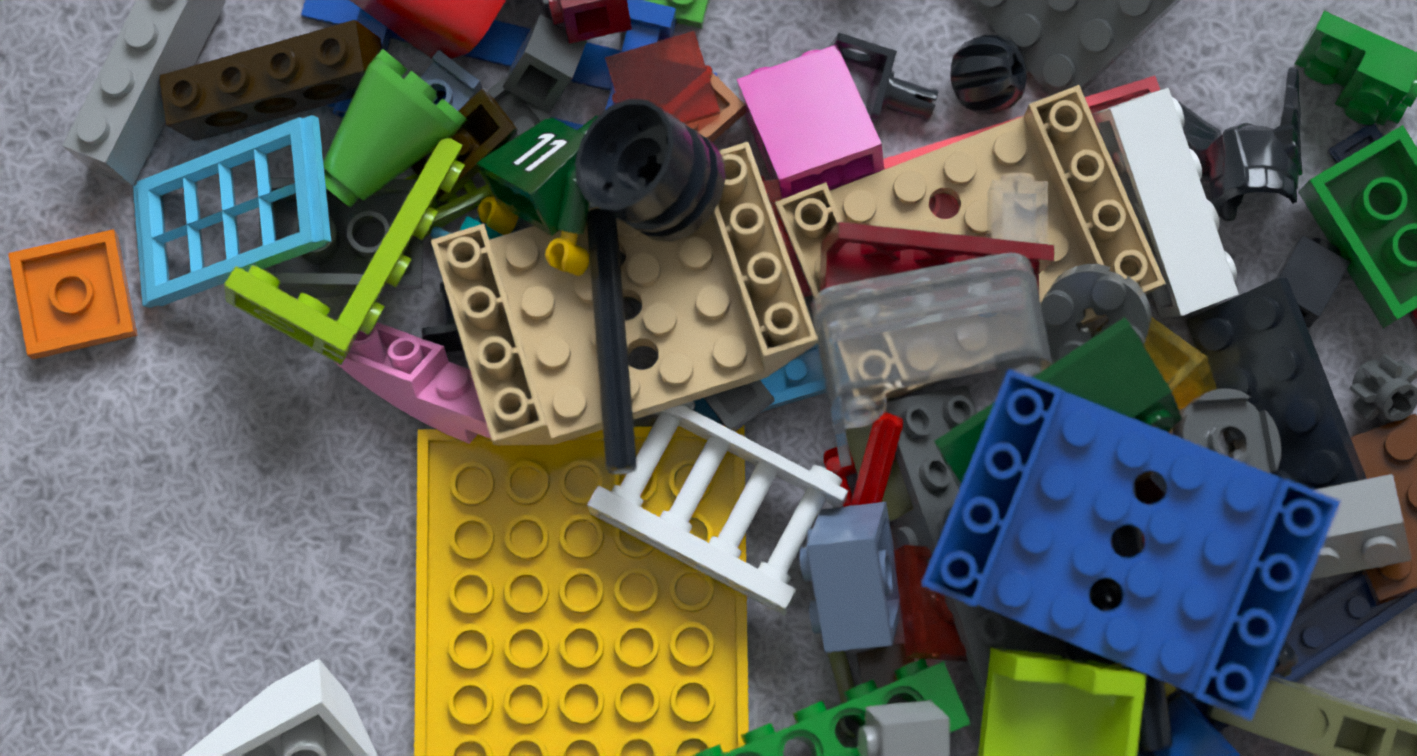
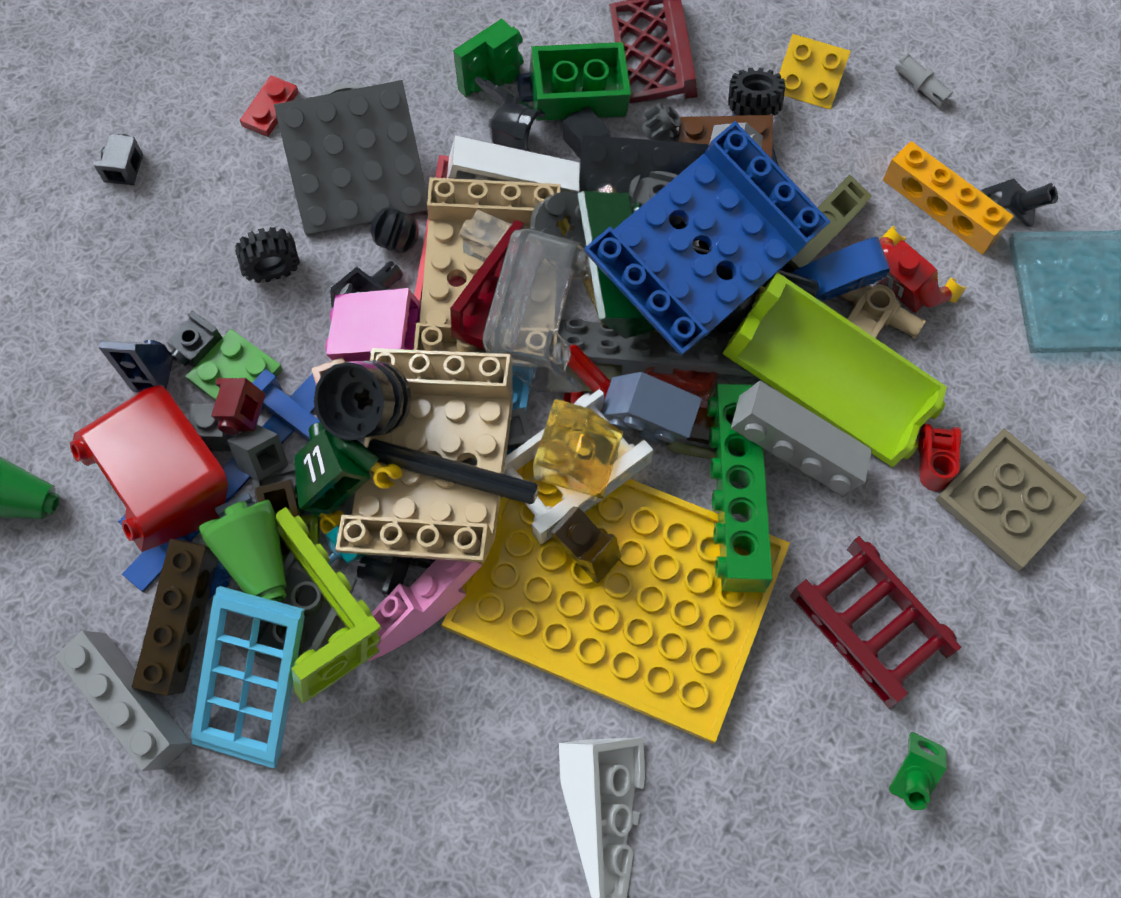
camera: 70 degrees left, 10 degrees down
(72, 294) = (241, 812): orange plate -> none
(605, 574) = (586, 544): none -> dark brown slope
(668, 75) = (296, 395): clear red piece -> none
(726, 500) = (577, 450): none -> clear yellow slope

